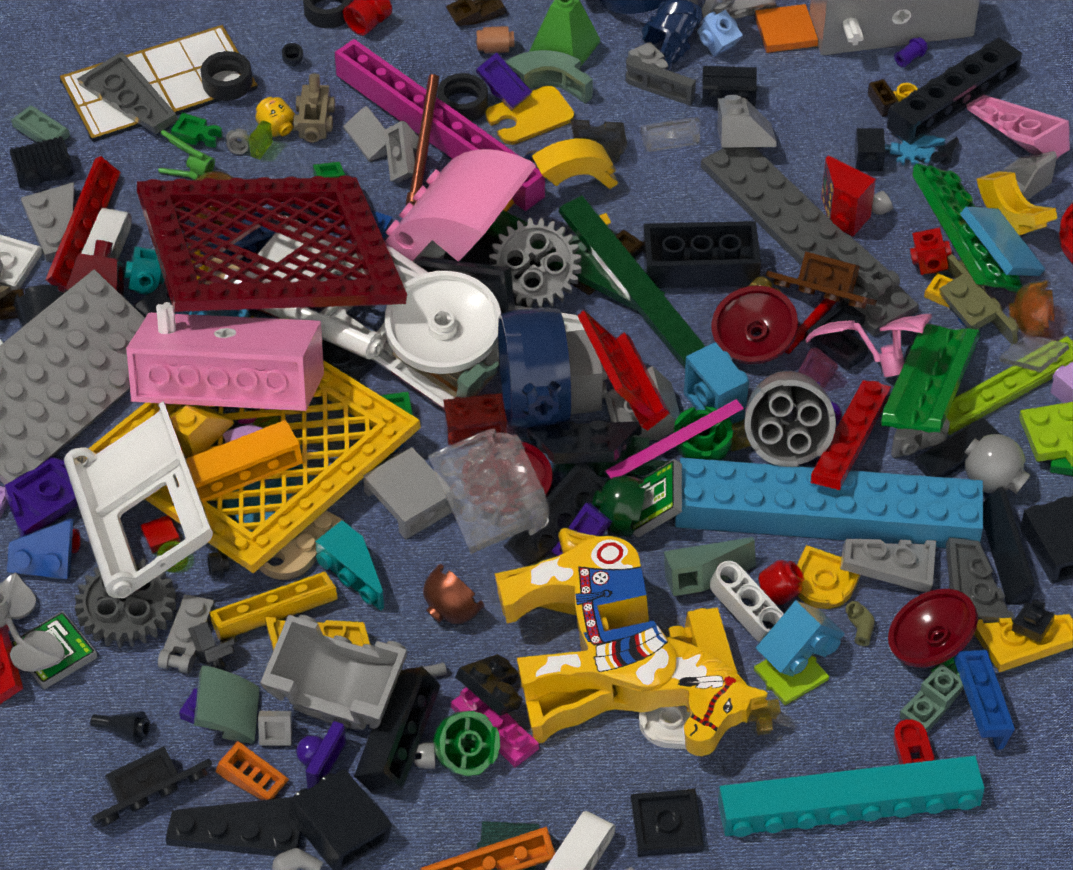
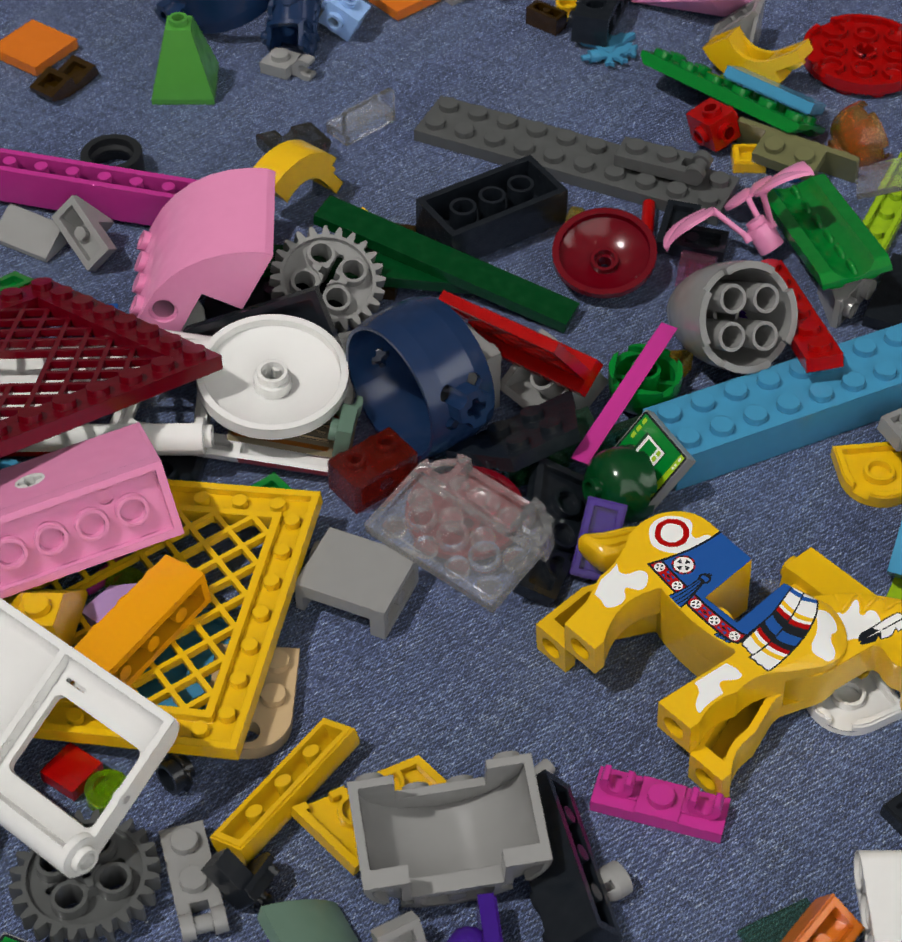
camera: 30 degrees left, 5 degrees down
(347, 556) = (345, 690): teal slope -> none
(424, 137) = (108, 211): copper bar -> none
(449, 597) = (501, 674): copper cylinder -> none
(466, 743) = (659, 839): green cylinder -> none
(491, 683) = (618, 750): black plate -> none
(495, 39) = (108, 97): nougat brick -> none
(503, 81) = (151, 128): dark purple tile -> none
(534, 116) = (199, 149): yellow piece -> none
(553, 69) = (192, 103): sand green arch -> none
(660, 81) = (314, 75): dark grey plate -> none
(692, 567) = (756, 509): sand green slope -> none
(715, 380) = (613, 318): dark azure brick -> none
(724, 81) = (389, 56): black brick -> none
(742, 124) = (434, 80): light grey slope -> none
(744, 587) = (834, 527): white beam -> none
(781, 581) = (846, 493): red head -> none
(825, 275) = (640, 180): reddish brown bracket -> none
(847, 195) = (590, 101): red slope -> none
(869, 149) = (574, 62): black brick -> none
(881, 203) = (624, 104): light grey hinge -> none
(946, 153) = (646, 40): black bar -> none

